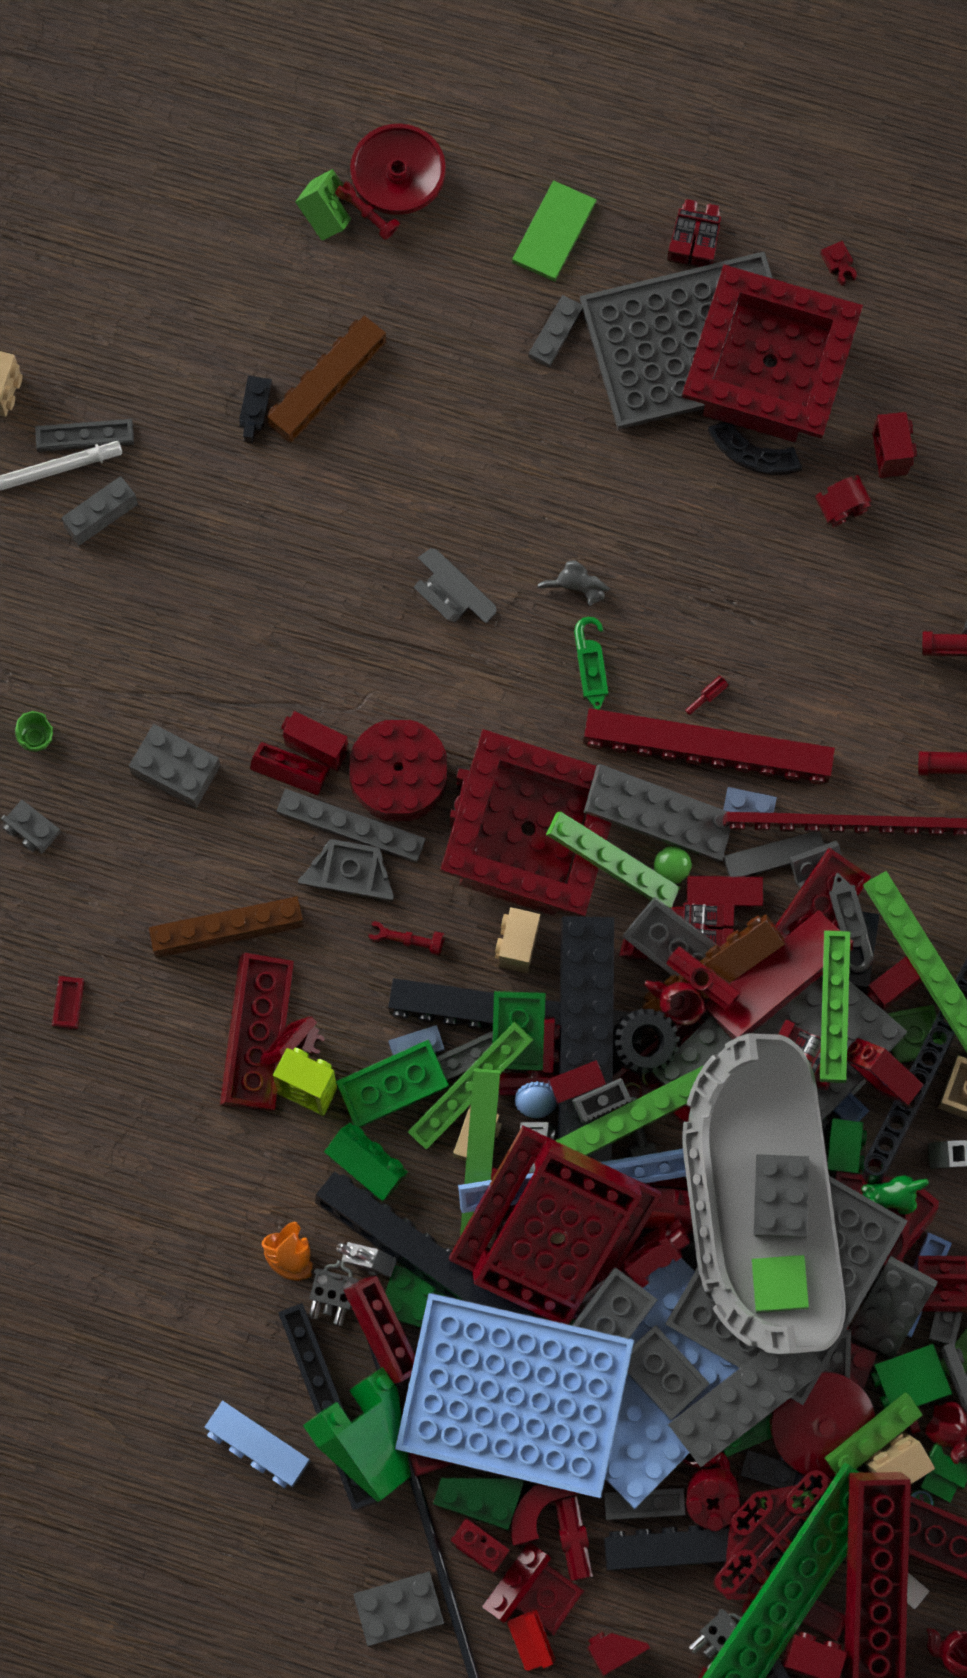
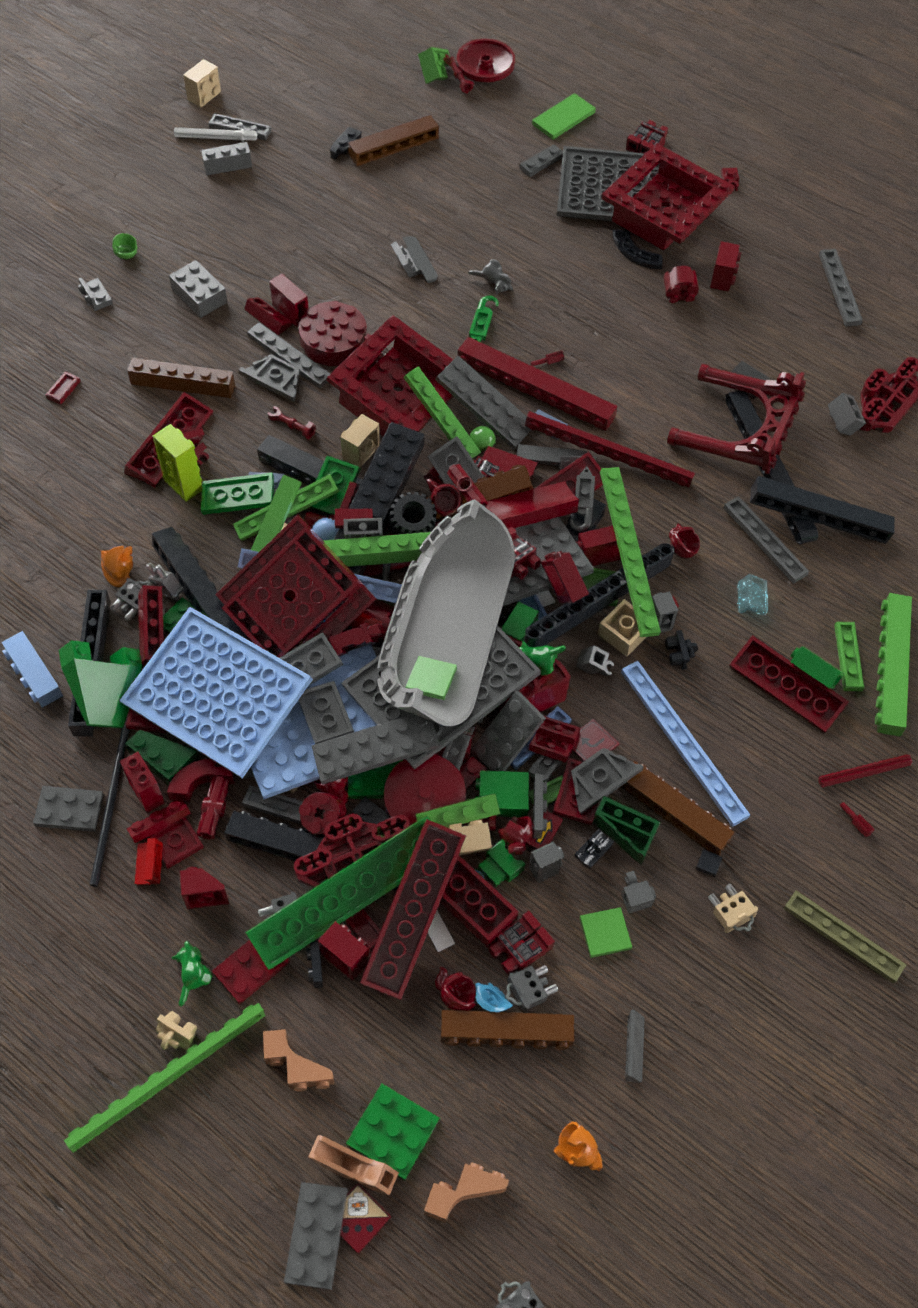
camera: 20 degrees right, 15 degrees down
(366, 1161) = (196, 529): green brick -> none
(781, 1196) = (456, 621): dark grey brick -> none
(835, 1007) = (547, 527): bright green plate -> none

